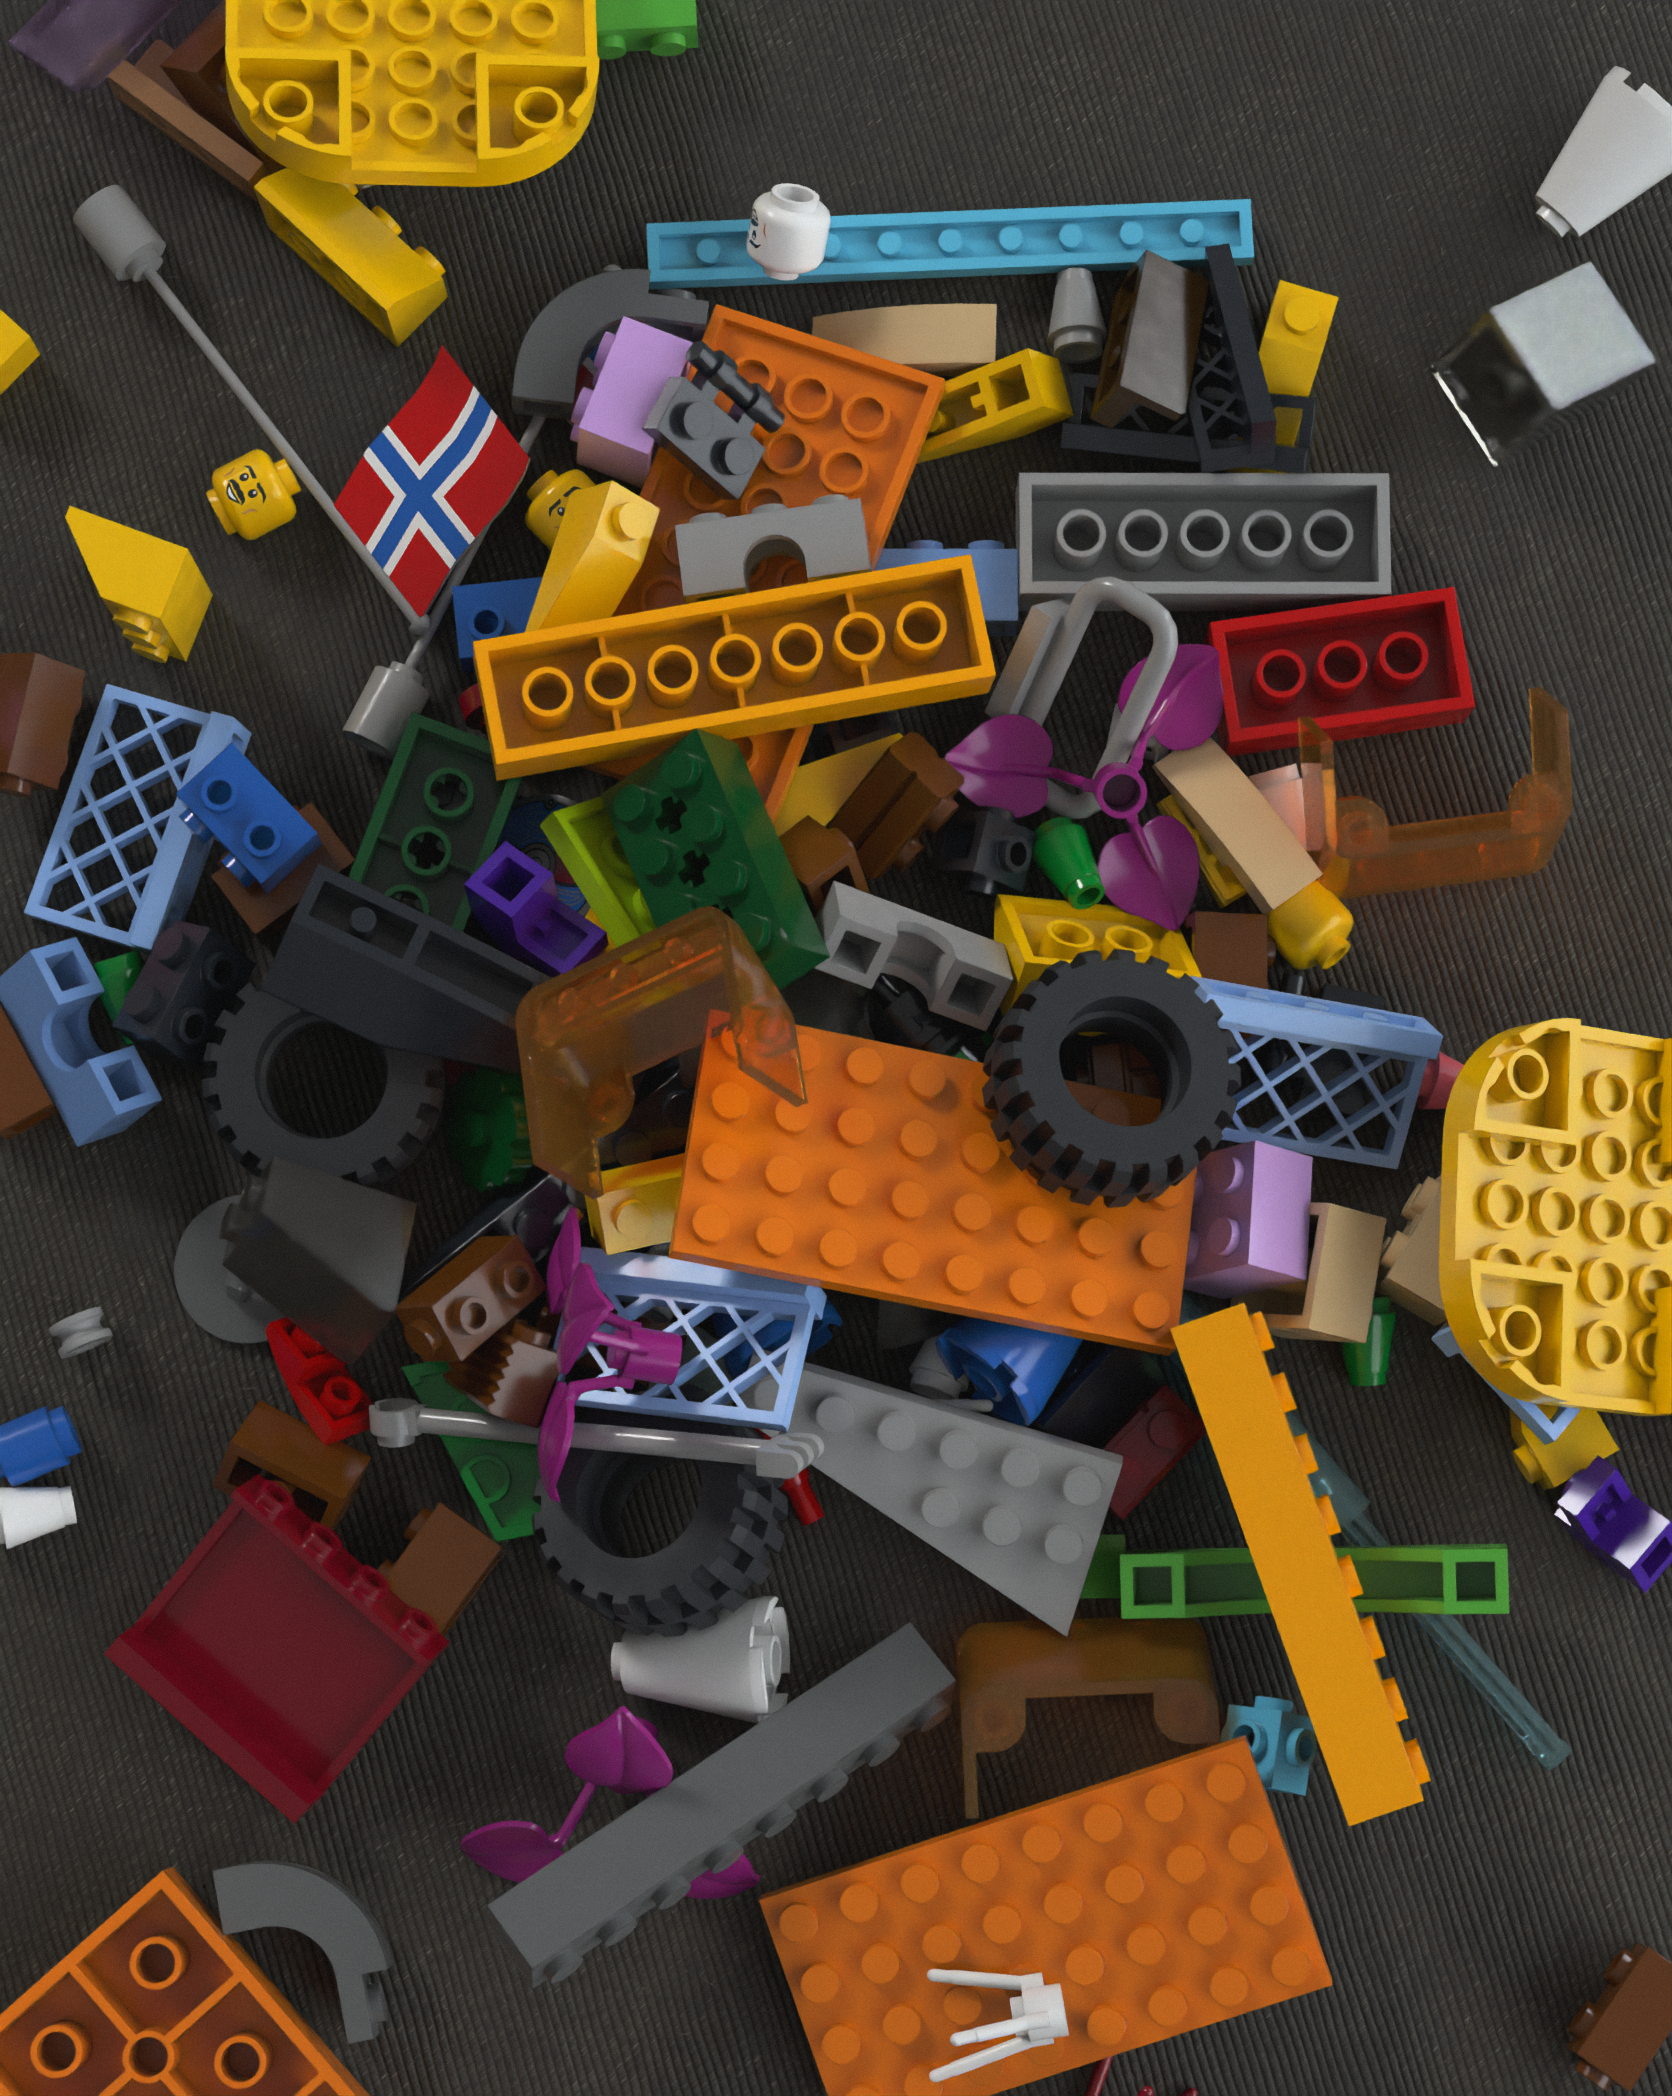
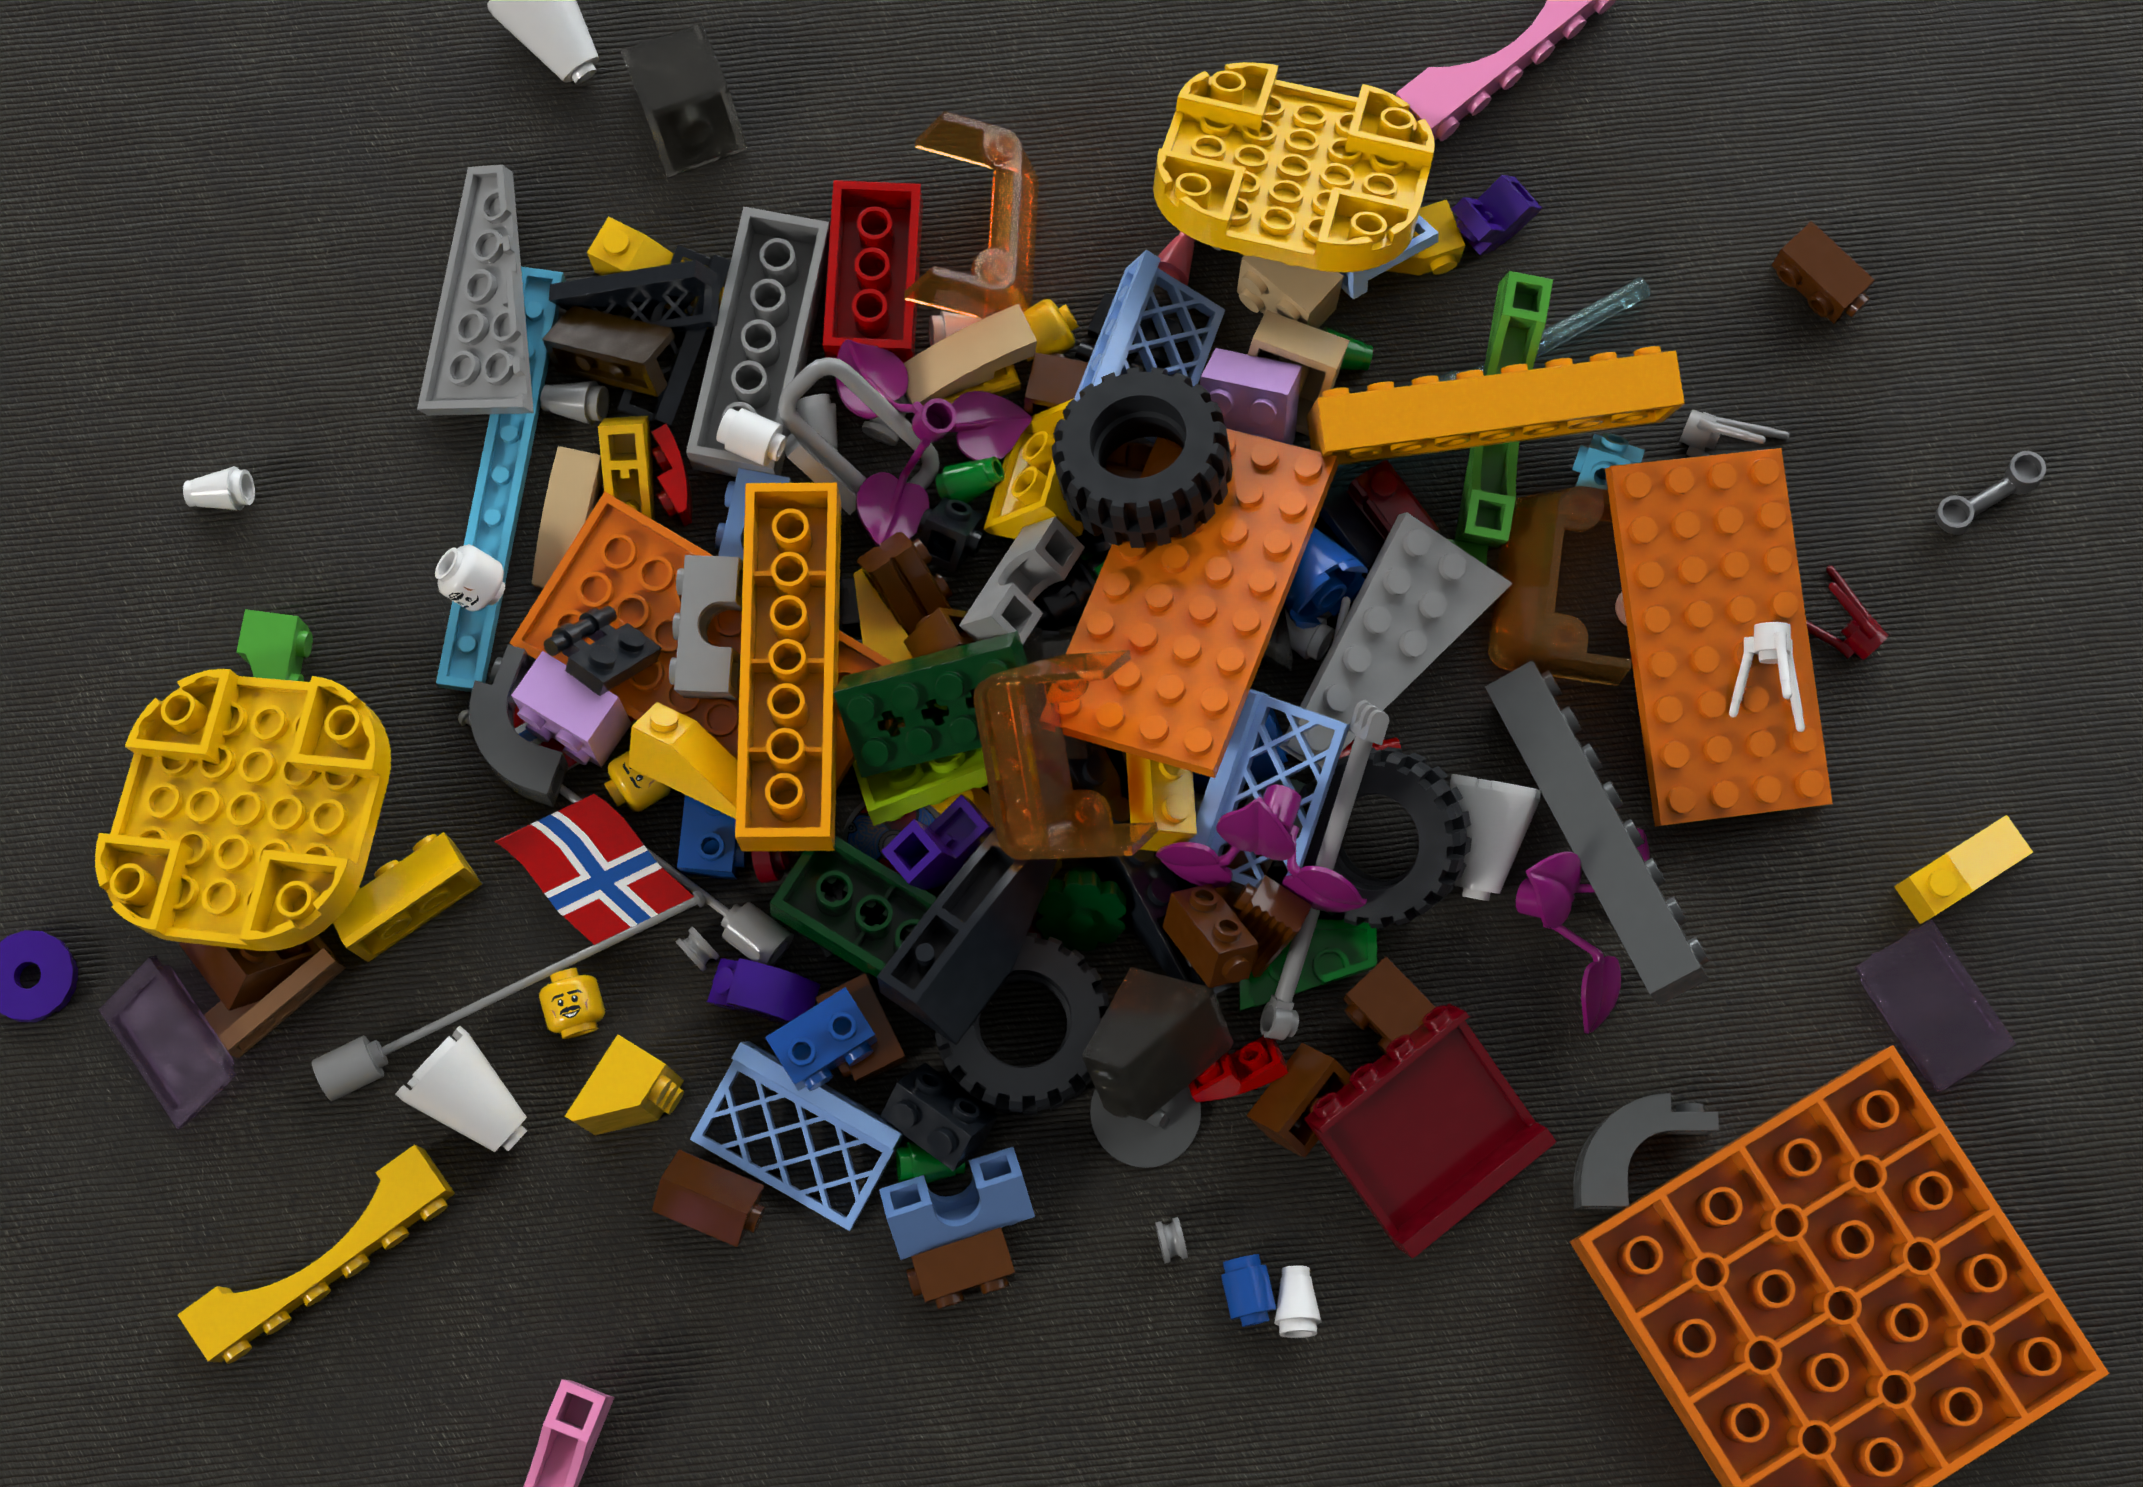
camera: 75 degrees left, 5 degrees down
(108, 386) = (465, 1094): none -> white cone
(310, 736) = (762, 990): none -> dark purple brick
(355, 639) = (697, 949): none -> light grey bush
(981, 475) = (676, 487): none -> red slope
(1051, 552) = (751, 436): none -> white brick
(1110, 645) = (820, 415): none -> white cone
(1145, 166) = (480, 326): none -> light grey wing
(1355, 1879) = (1705, 429): none -> light grey plant

